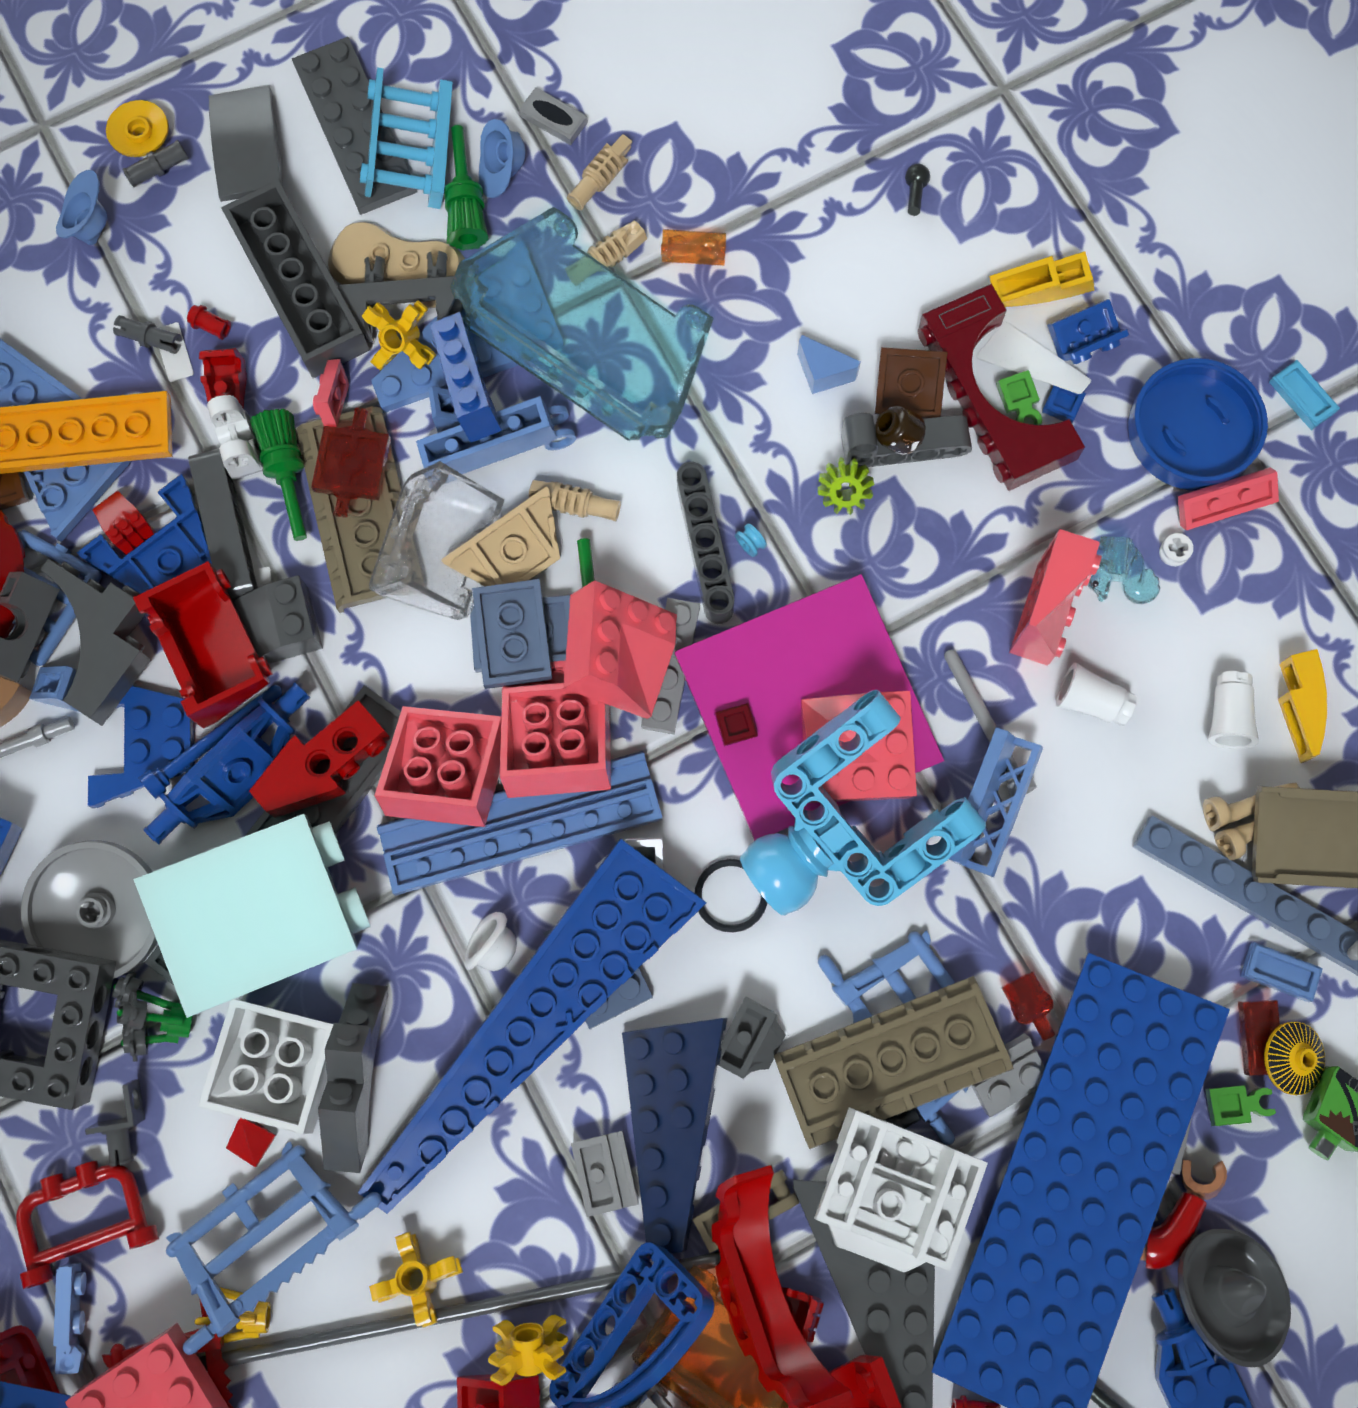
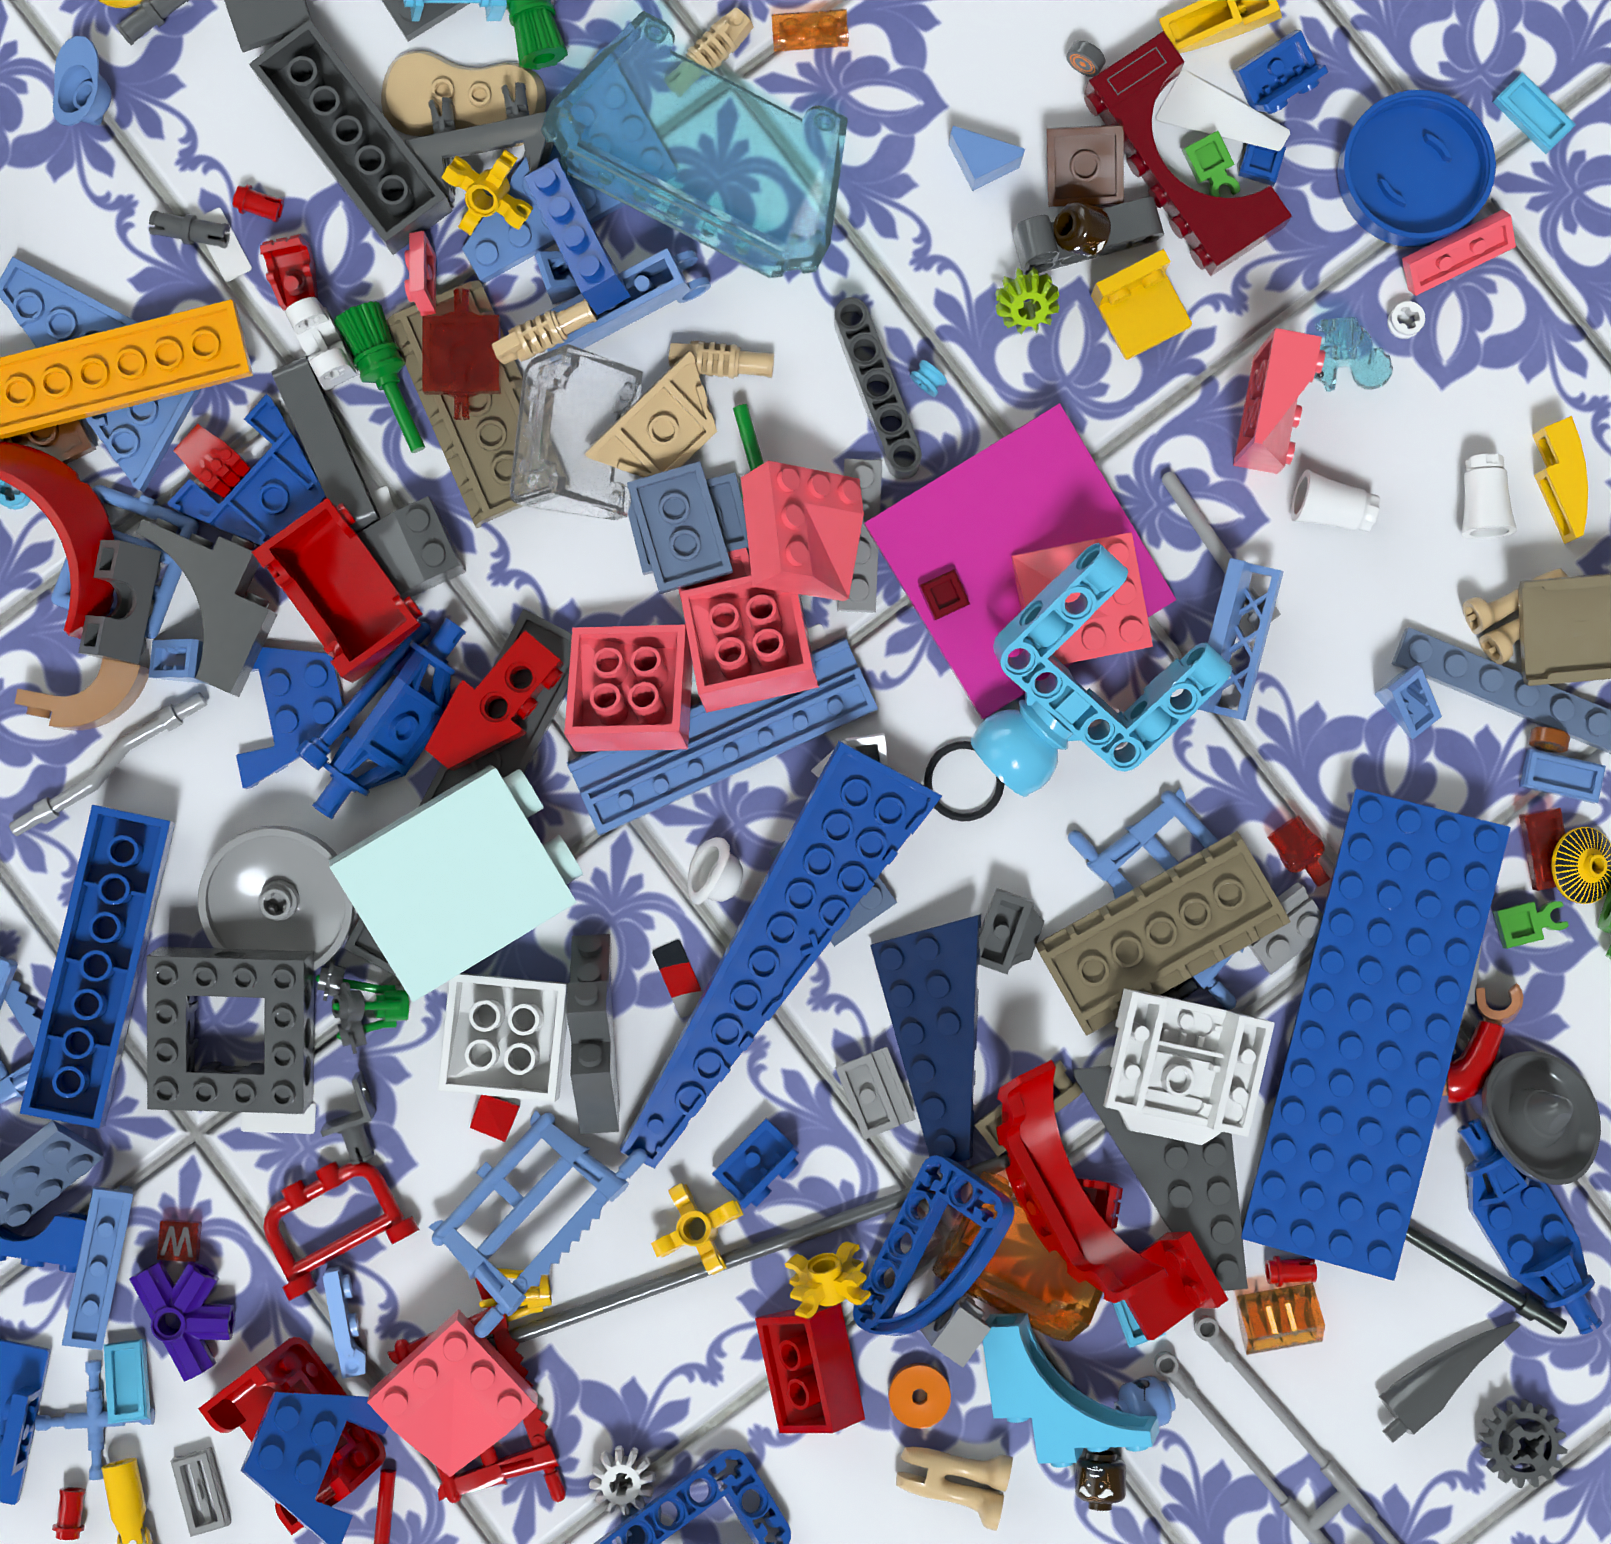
camera: 10 degrees left, 10 degrees up
(54, 1116) = (280, 1122): none -> white sticker
(421, 451) = (543, 332): none -> tan hinge
(442, 1035) = (678, 977): none -> sticker
(482, 1223) = (757, 1163): none -> blue bracket
(922, 298) = (1086, 58): none -> dark grey tile
(944, 504) = (1141, 305): none -> yellow bracket
(1147, 882) = (1410, 701): none -> medium blue slope
(1272, 936) = (1549, 739): none -> dark orange tile

